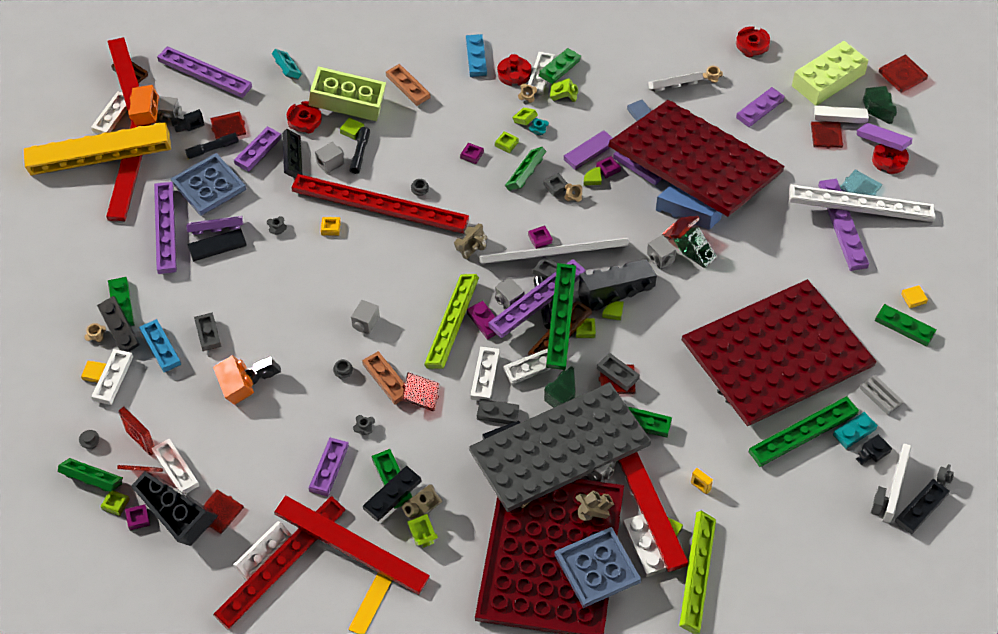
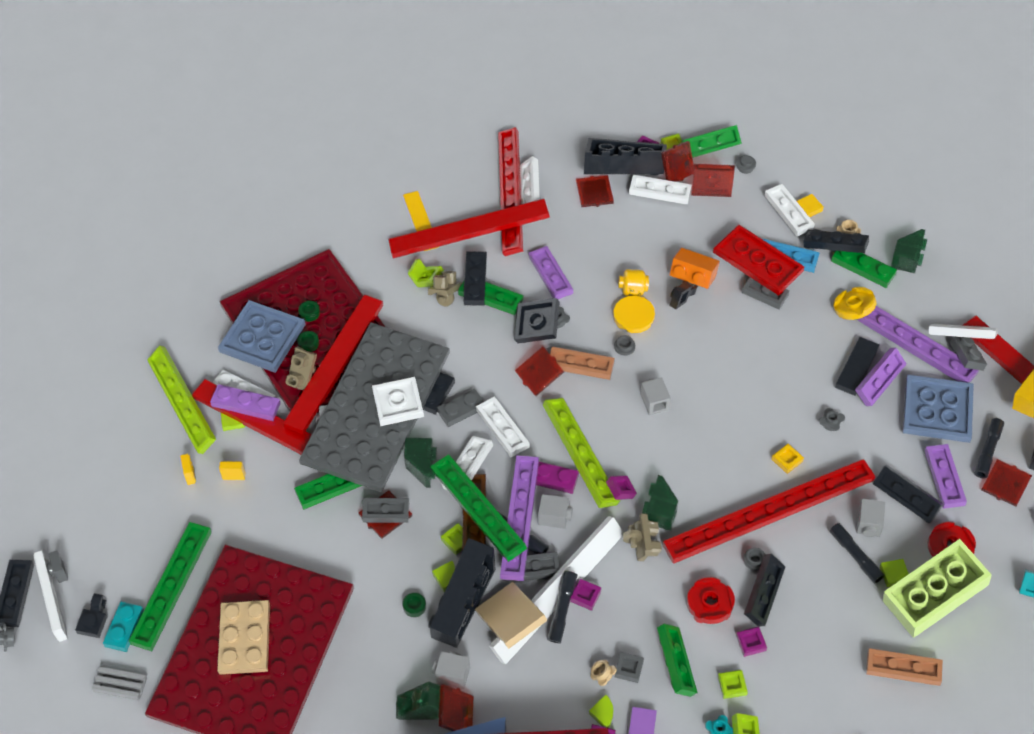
camera: 140 degrees right, 0 degrees up
(82, 284) = (907, 252): none -> clear green slope
(132, 207) = (963, 331): none -> white tile
(147, 195) = (968, 353): none -> dark grey plate
(166, 277) = (855, 303): none -> yellow tile
(185, 351) = (758, 259): none -> red tile
(284, 405) = (633, 282): none -> yellow head
(309, 387) = (634, 314): none -> yellow tile
(384, 425) = (537, 320): none -> black plate
(436, 167) = (764, 590): none -> black plate
(440, 250) = (662, 504): none -> clear green slope
(452, 279) = (621, 487): none -> magenta tile
(475, 192) = (710, 613): none -> red plate
(541, 565) = (309, 311): none -> dark green tile
(547, 421) = (397, 401): none -> white plate
(556, 505) = (333, 365): none -> red tile
(564, 537) = (308, 341): none -> dark green tile
(572, 232) = (559, 621): none -> black piece
(600, 244) = (511, 615): none -> tan tile
(649, 309) = (414, 604): none -> dark green tile
(653, 521) = (245, 402): none -> medium lavender plate
(733, 506) = (188, 469): none -> yellow tile
(780, 350) = (244, 637): none -> tan plate

